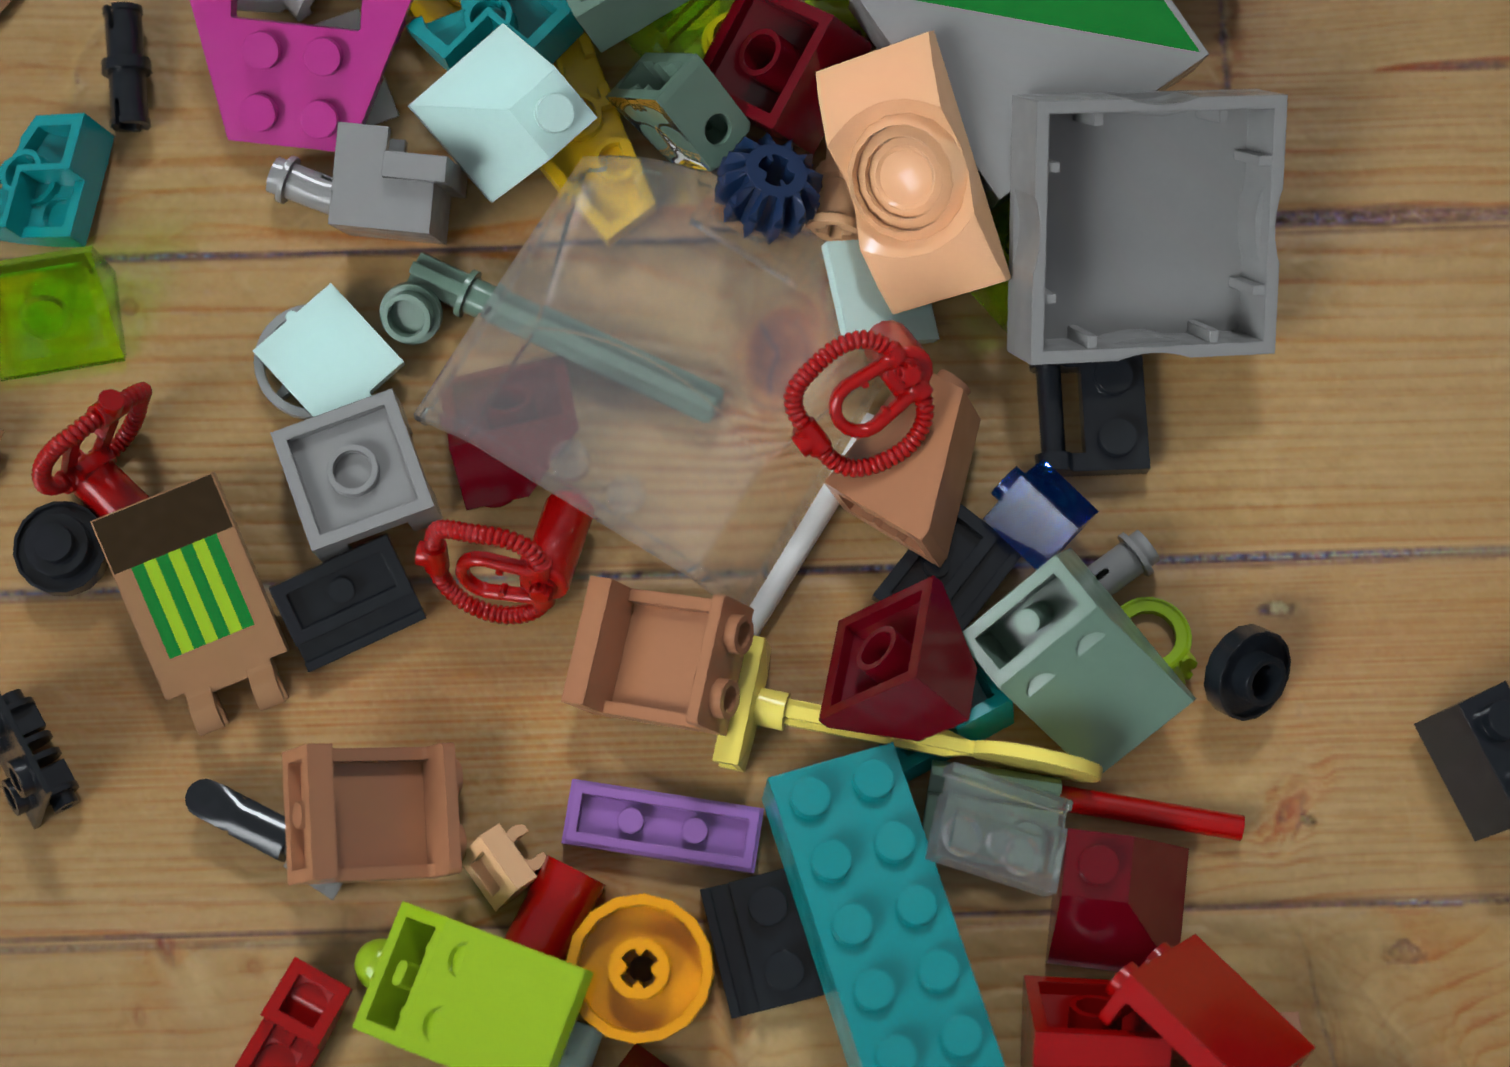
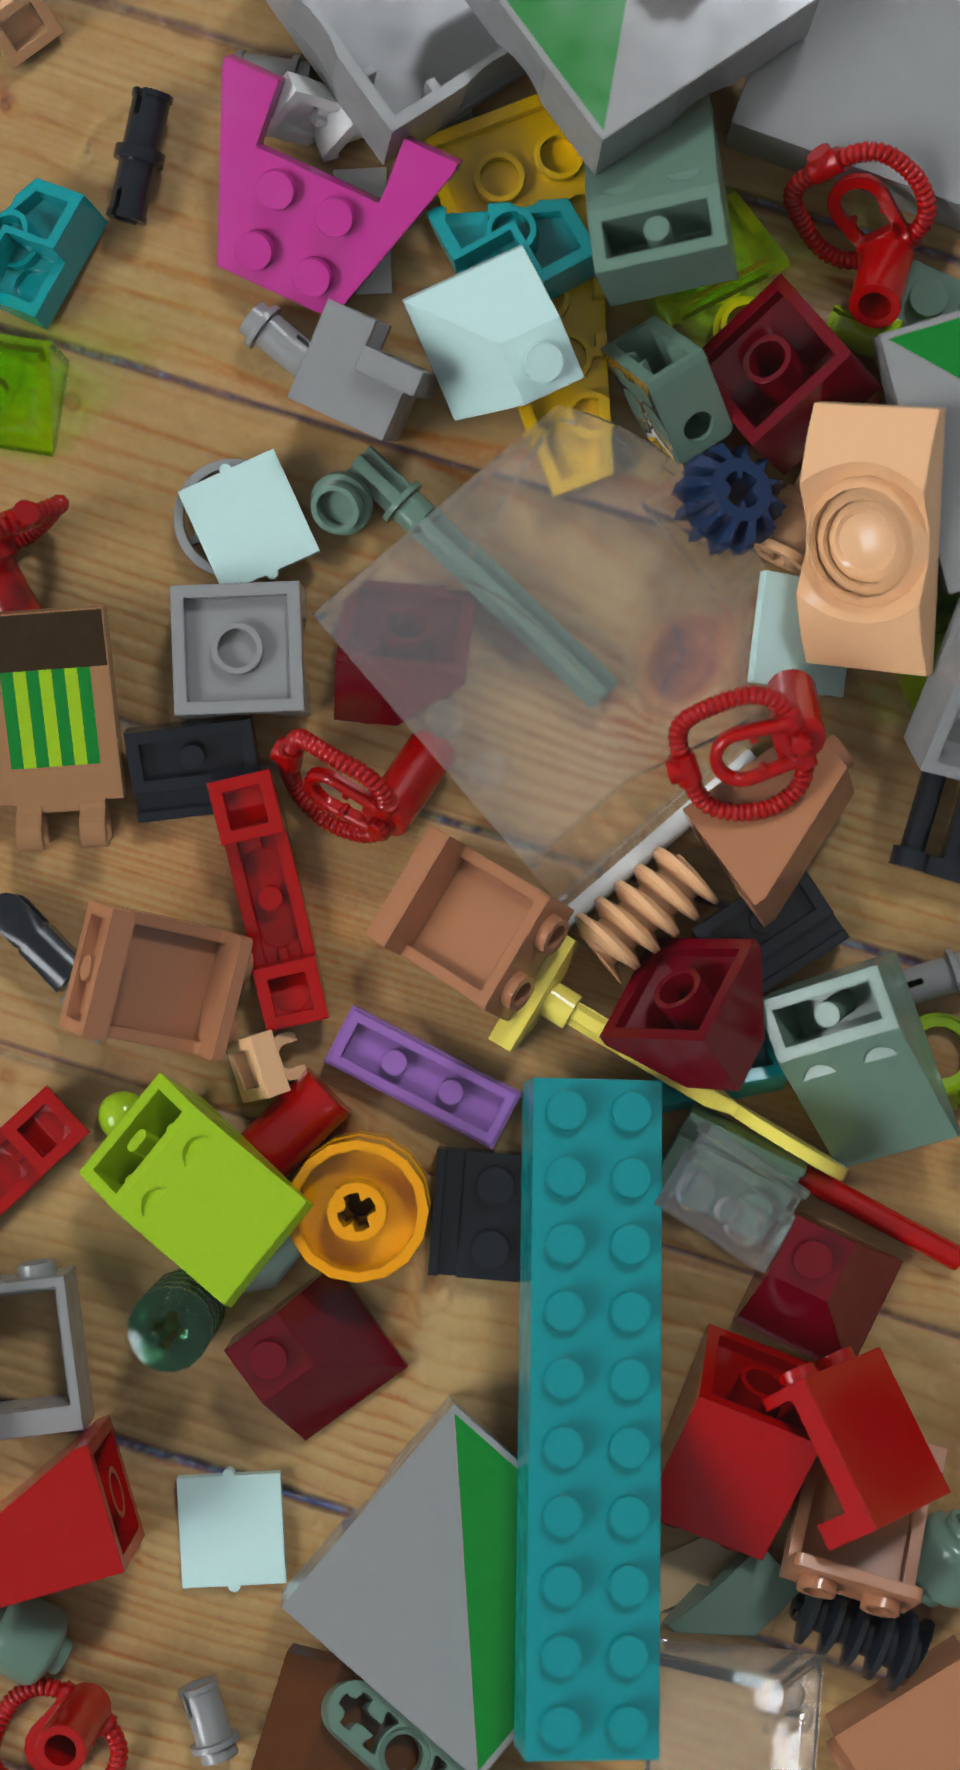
camera: 20 degrees right, 10 degrees up
(458, 701) = (270, 899): none -> red slope
(819, 592) = (643, 910): none -> light nougat piece
(1038, 512) = (877, 905): clear blue brick -> none

